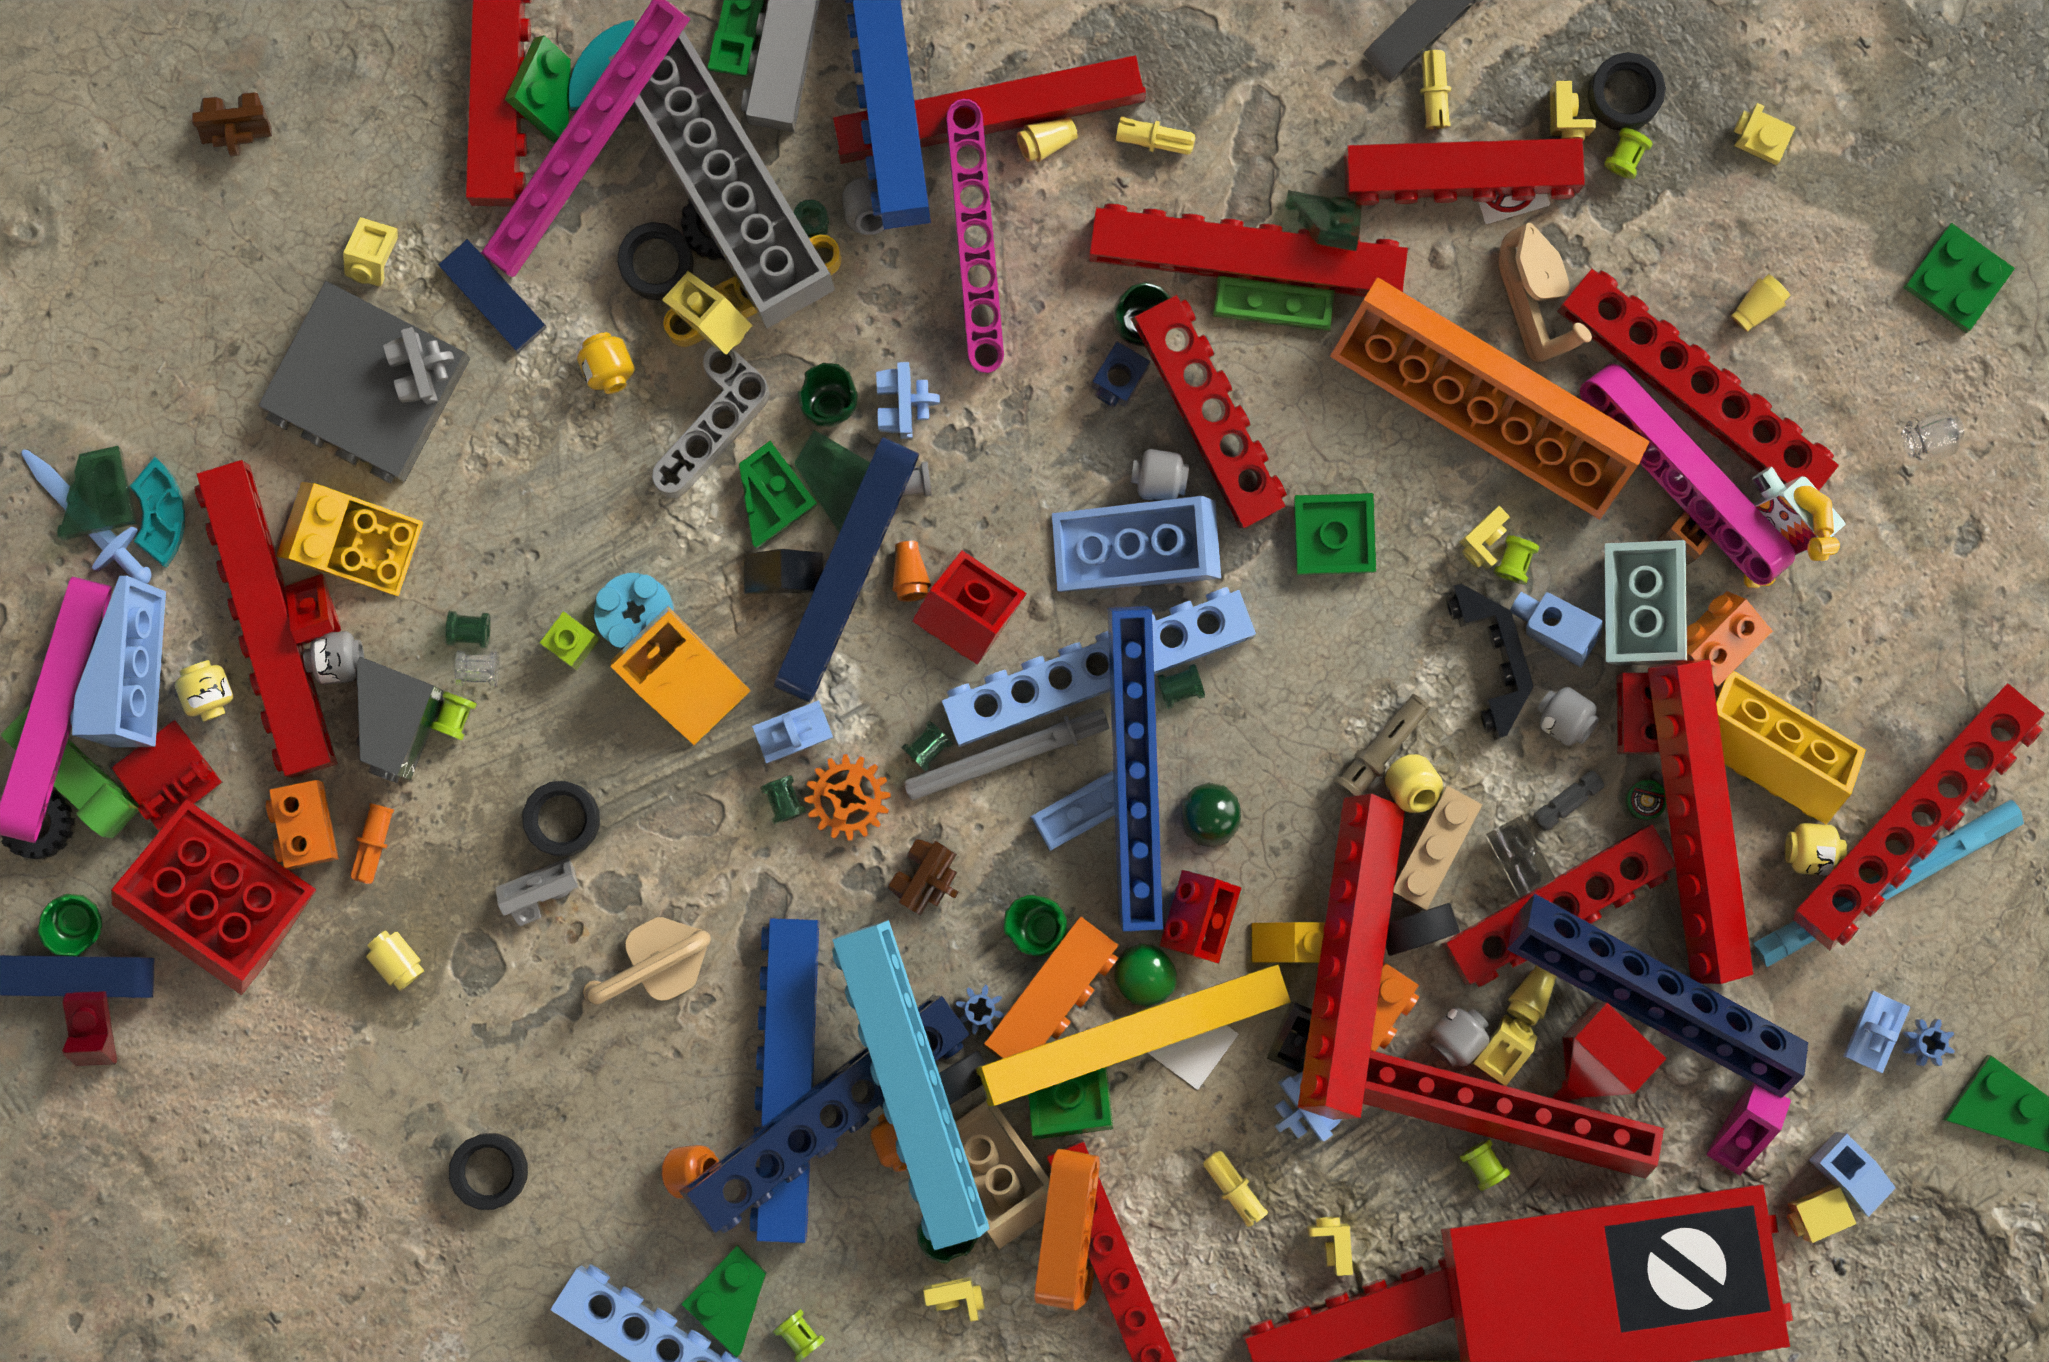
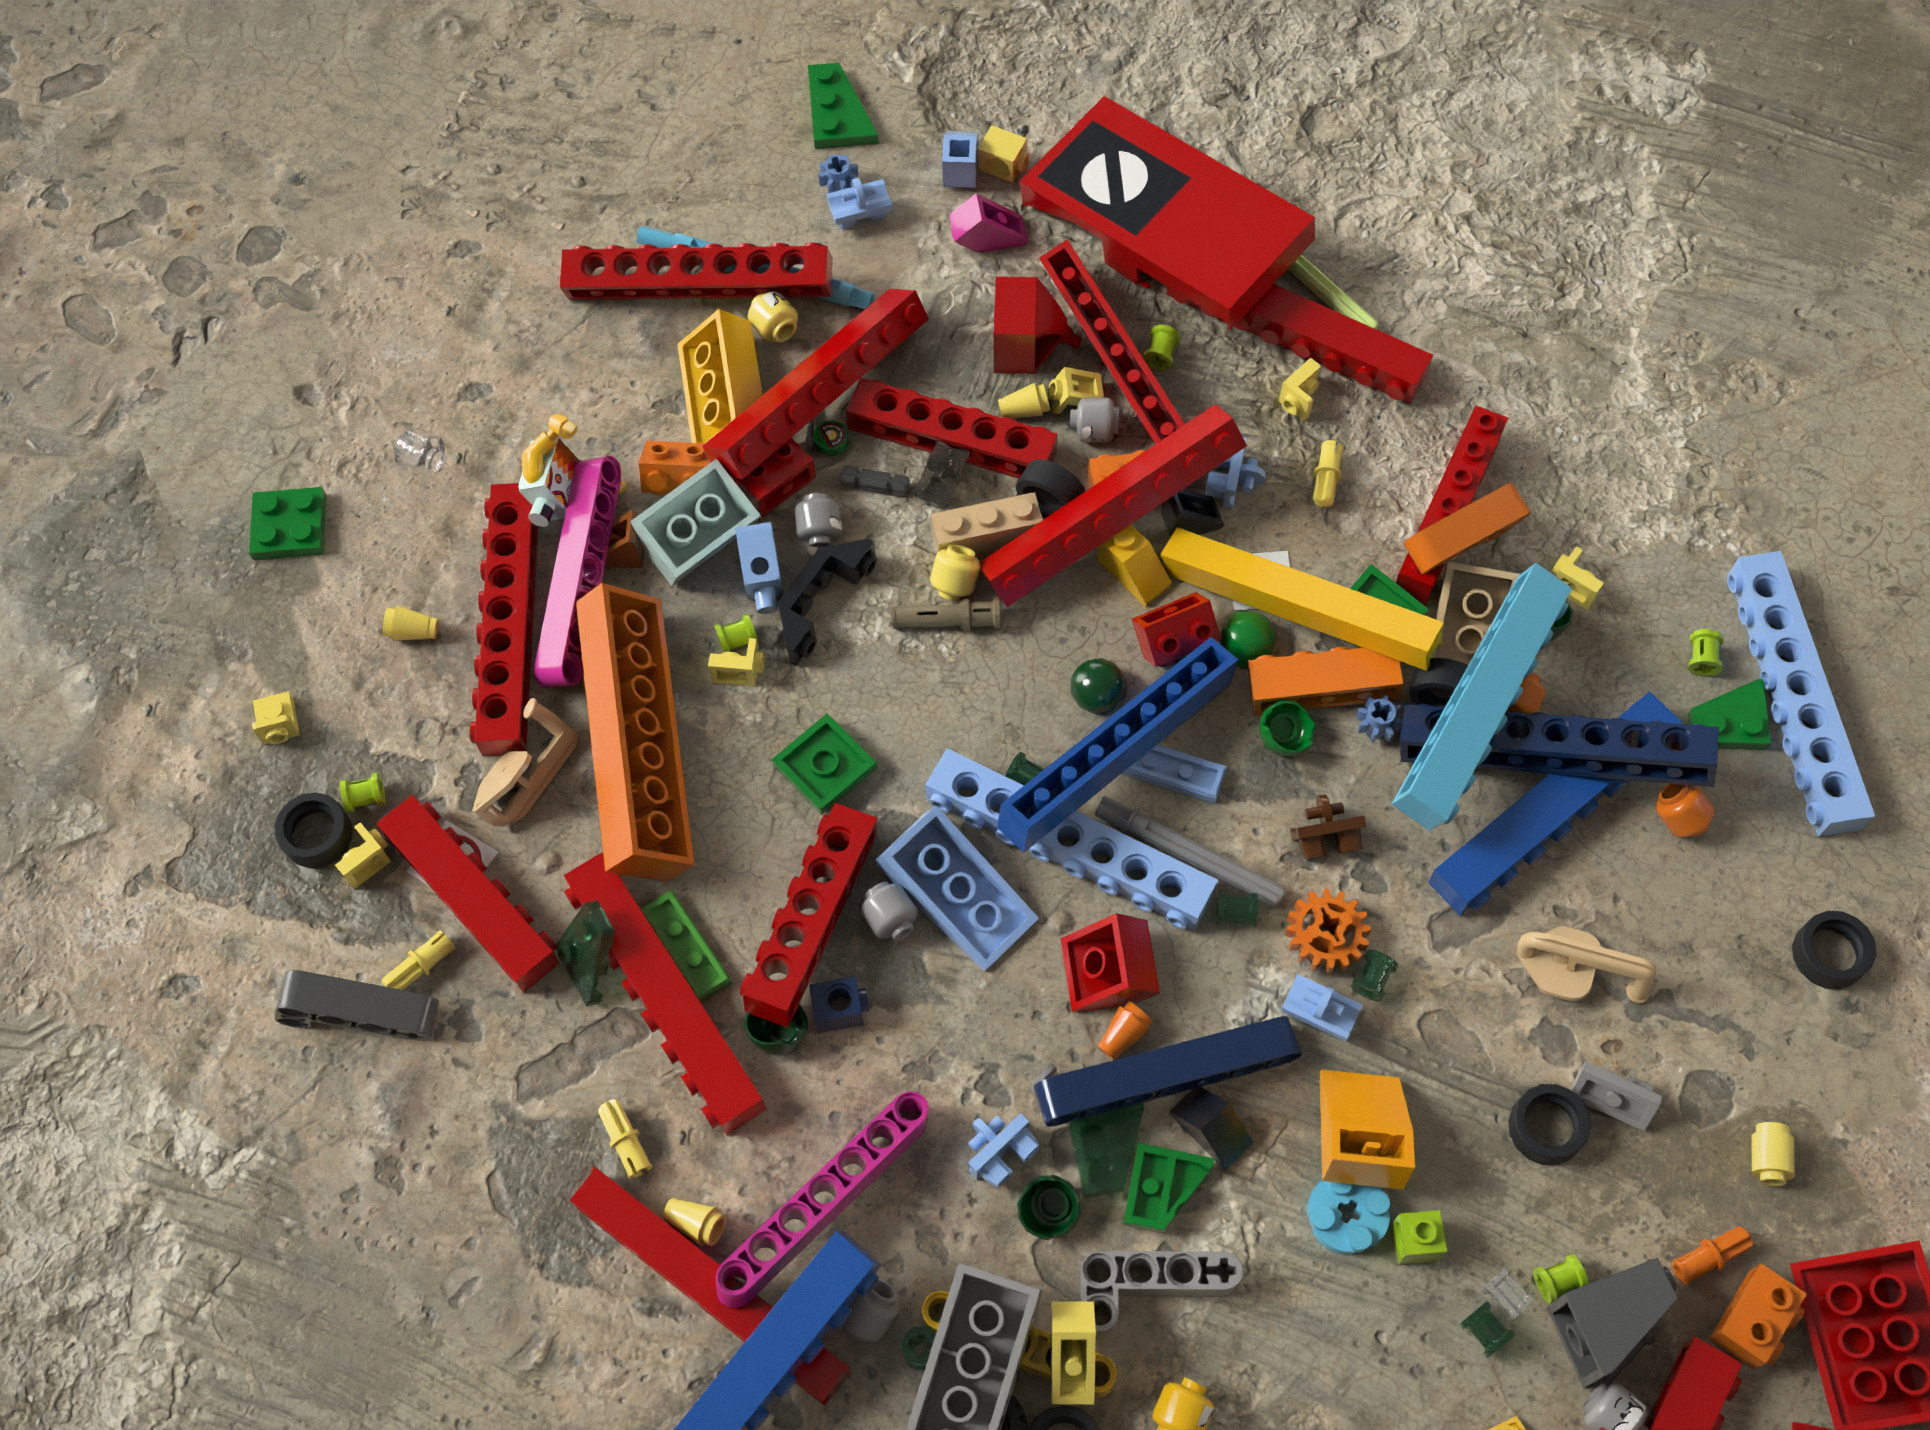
camera: 125 degrees left, 20 degrees down
(1658, 996) = (959, 324): dark blue brick -> none

